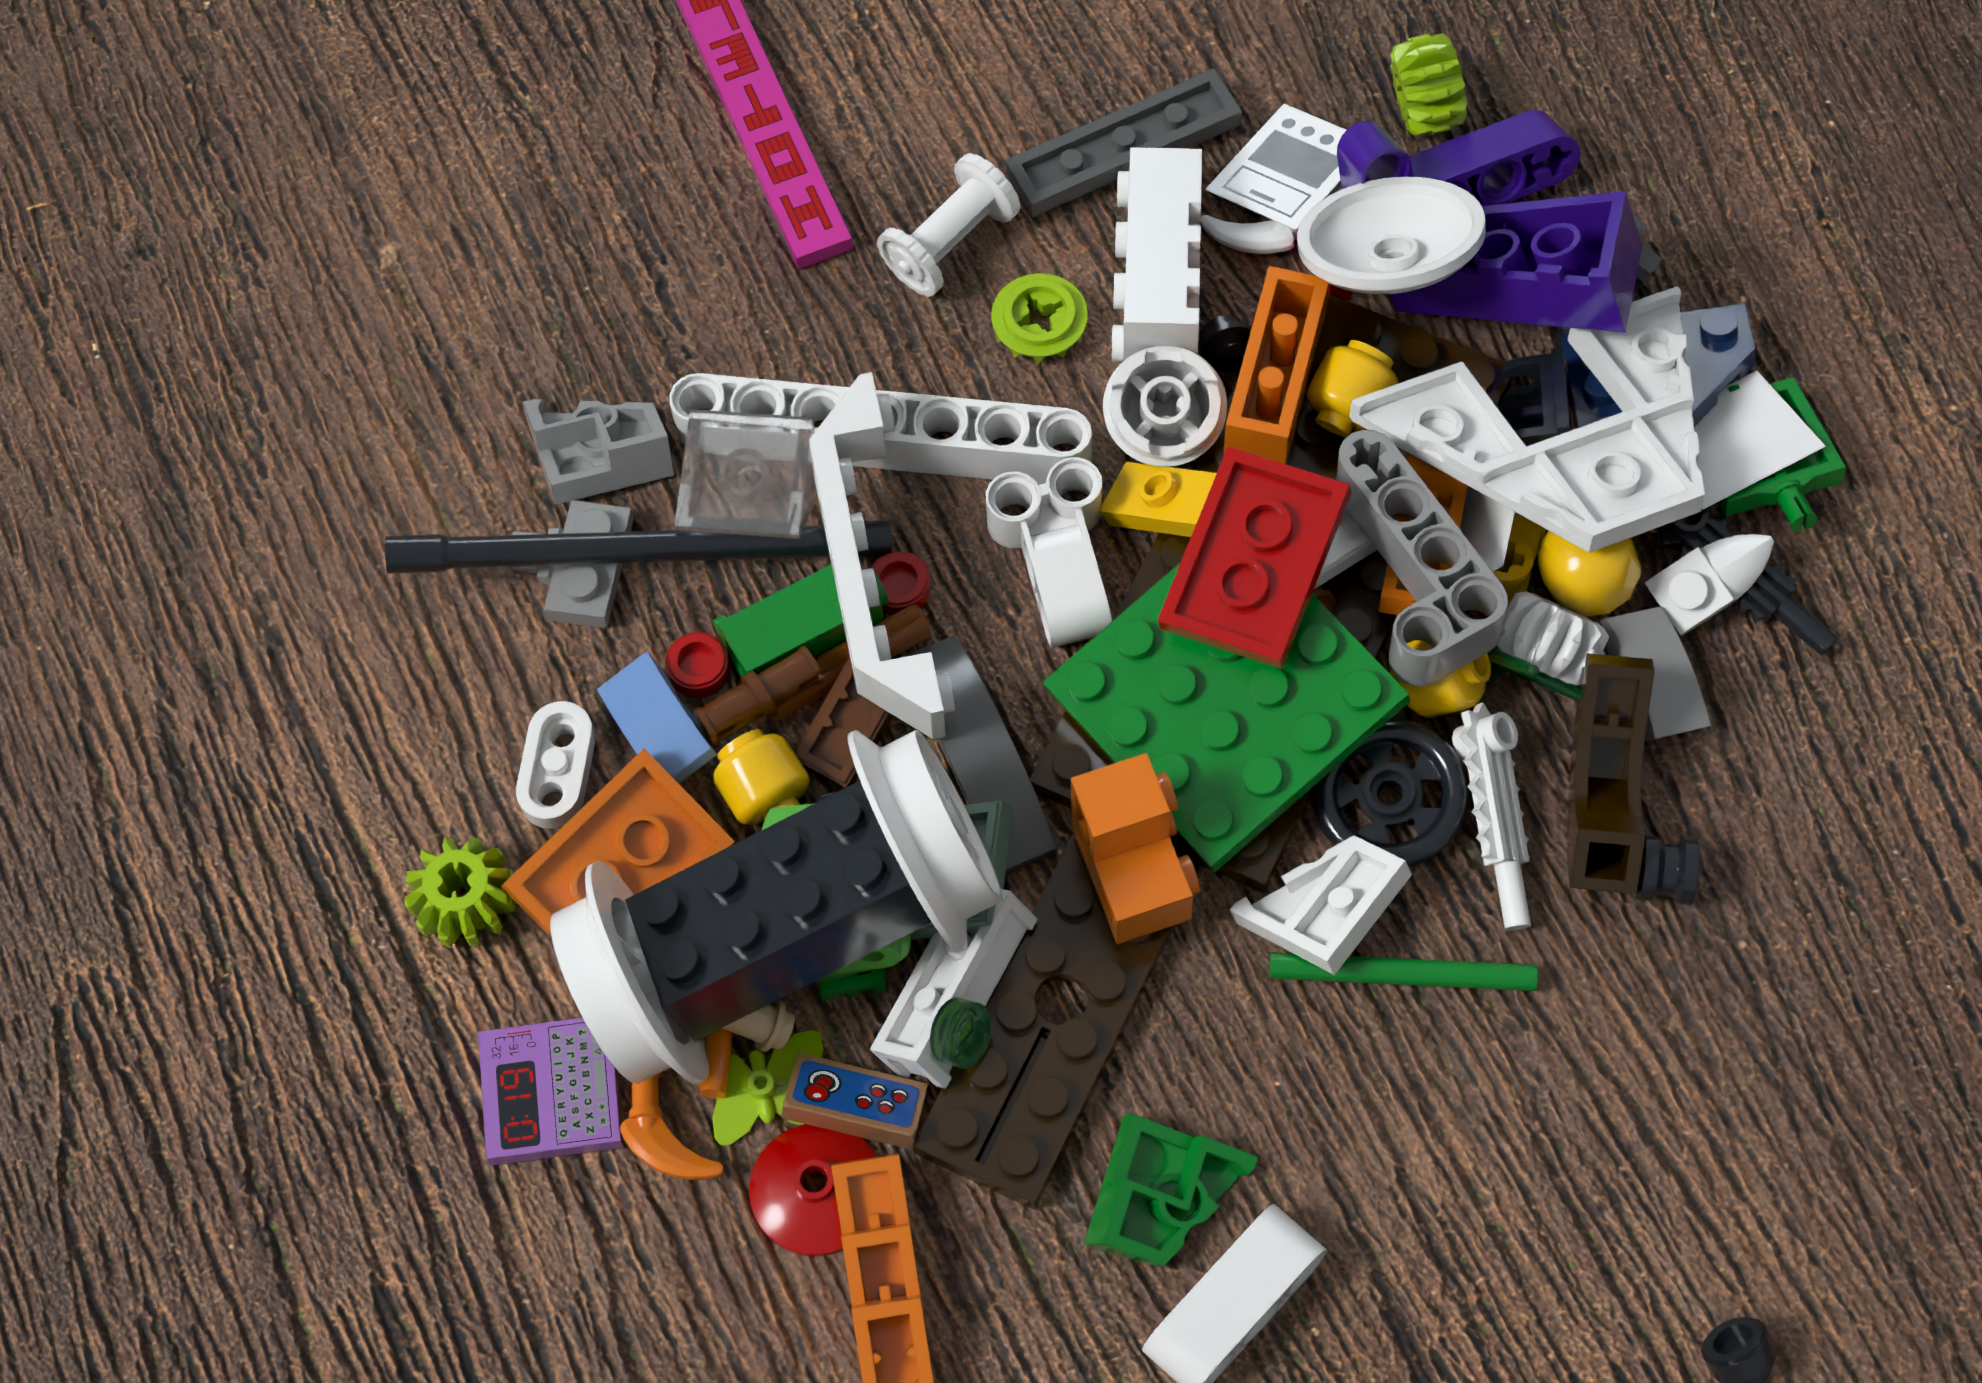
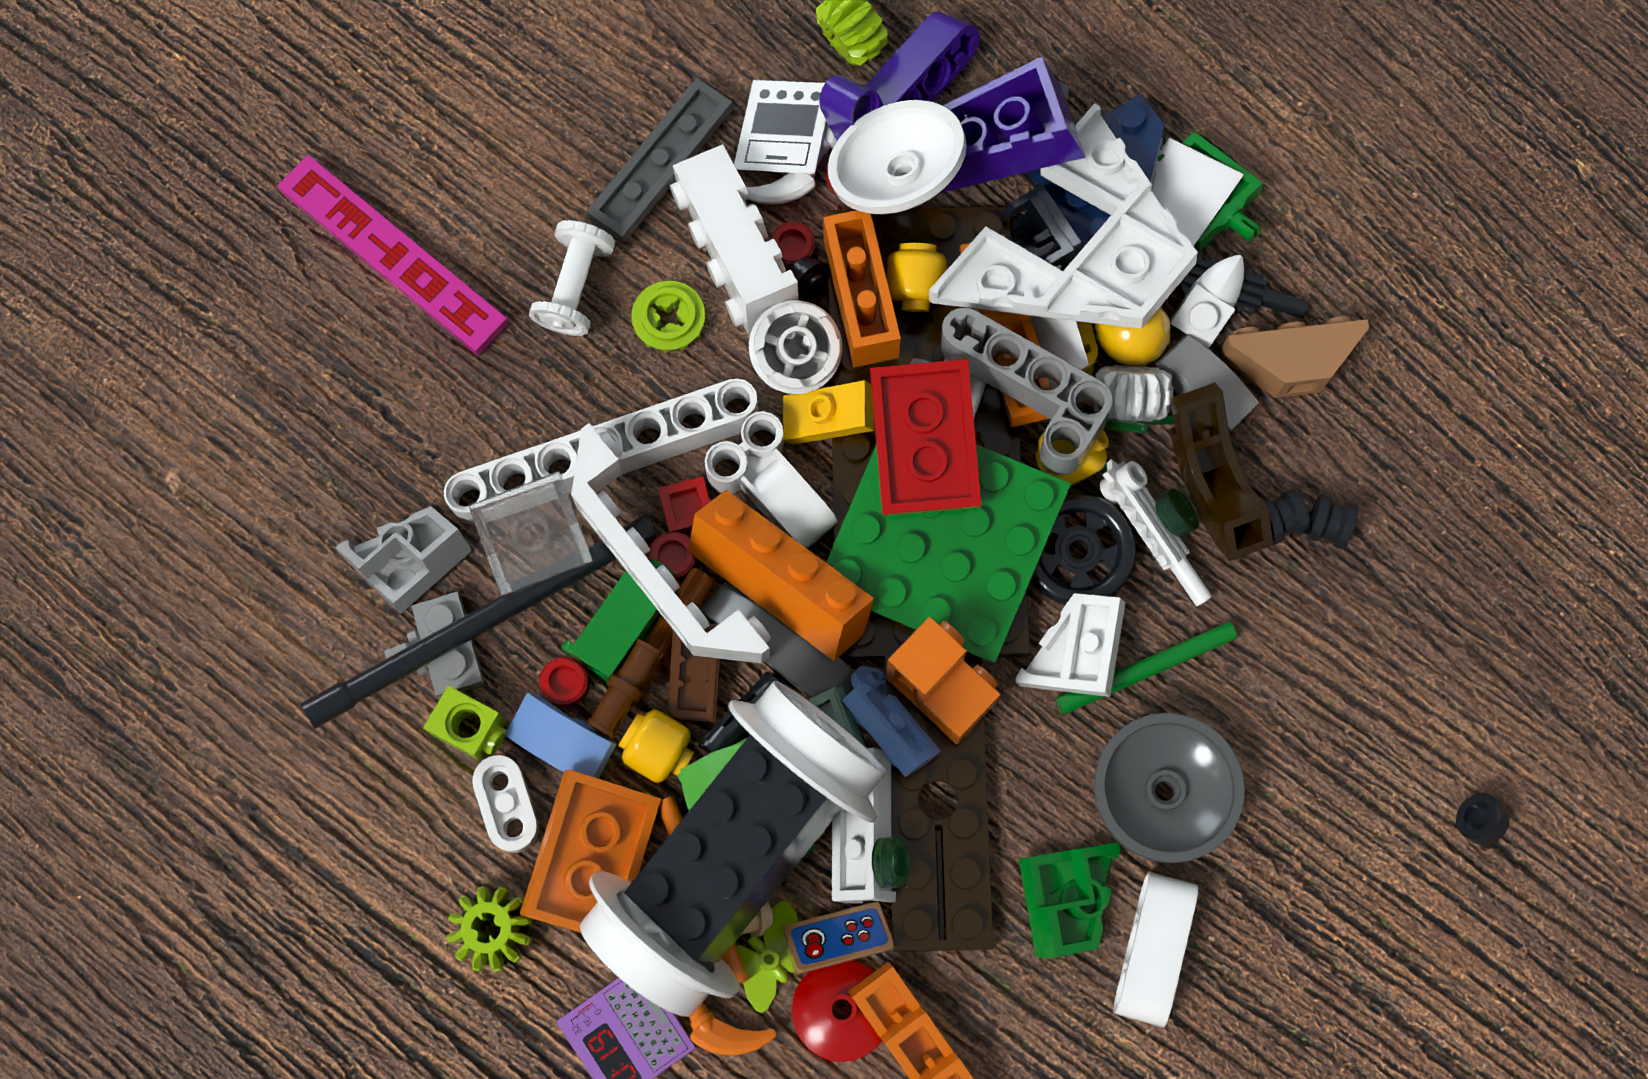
camera: 30 degrees left, 10 degrees up
(552, 633) = (449, 714): none -> lime brick
(946, 535) = (681, 502): none -> red tile
(1008, 649) = (780, 574): none -> orange brick
(1046, 874) = (888, 721): none -> medium blue hinge
(1229, 295) = (794, 242): none -> red tile
(1356, 1071) = (1196, 768): none -> dark grey dish
(1535, 805) = (1176, 513): none -> clear green tile
(1729, 904) = (1332, 521): none -> black wheel
(1787, 691) = (1294, 356): none -> medium nougat slope

